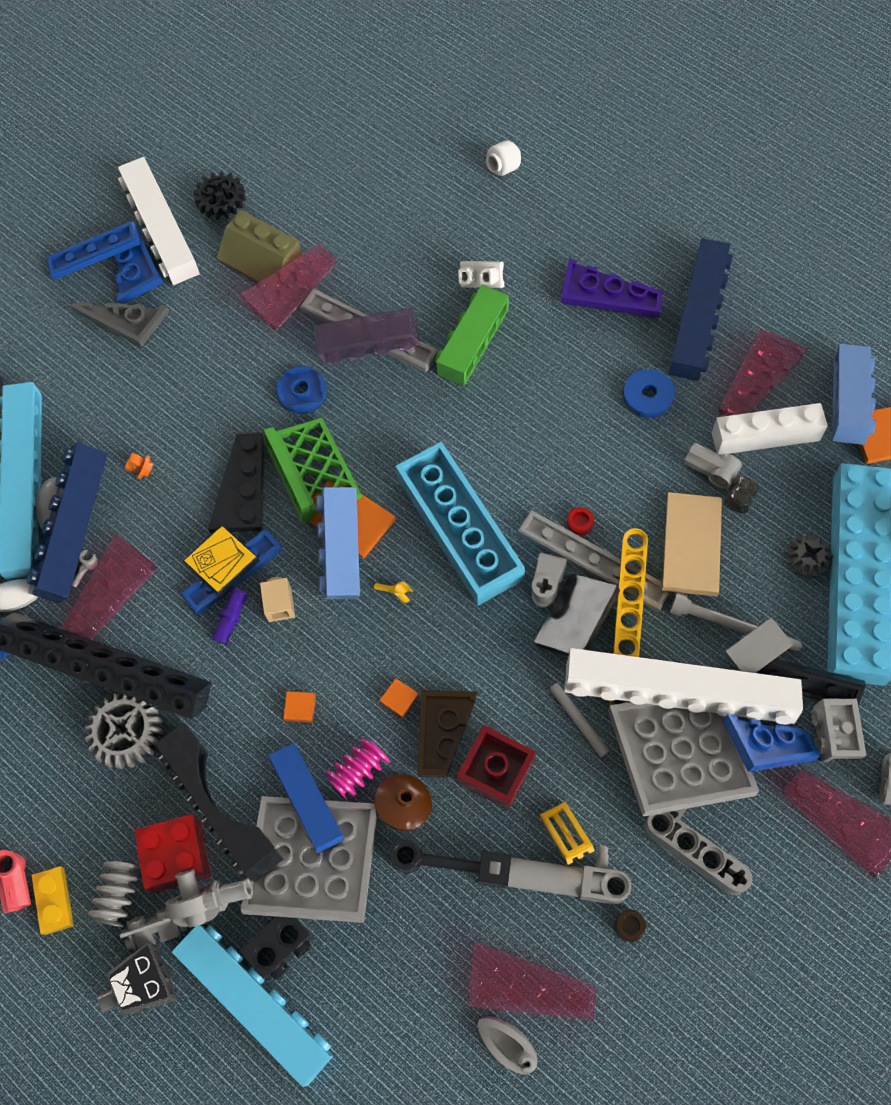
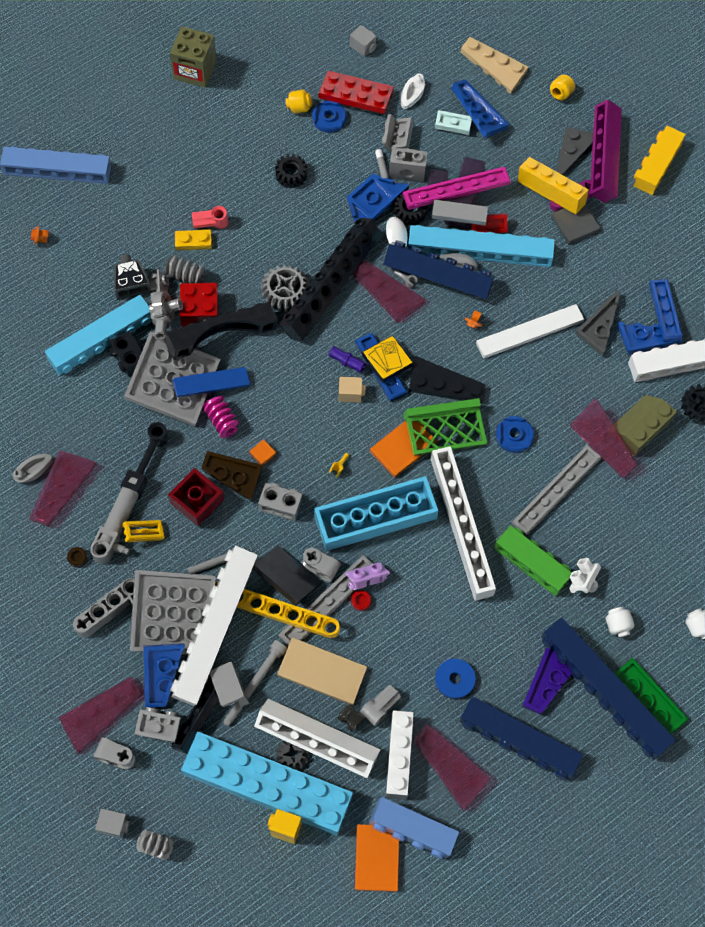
camera: 95 degrees right, 0 degrees up
(146, 400) = (529, 331): none -> white tile
(299, 707) = (273, 392): orange tile -> none
(339, 543) = (377, 431): medium blue brick -> none
(367, 335) = (545, 483): clear purple brick -> none
(396, 812) = (192, 450): reddish brown dish -> none
(444, 418) = (462, 523): none -> white brick
(475, 652) = (278, 507): none -> light grey brick
(525, 233) = (620, 622): none -> white head
(548, 514) = (373, 574): none -> lavender hinge
(609, 200) = (651, 696): none -> green tile
(613, 229) = (607, 688): none -> dark blue brick
(784, 526) = (317, 738): none -> white brick

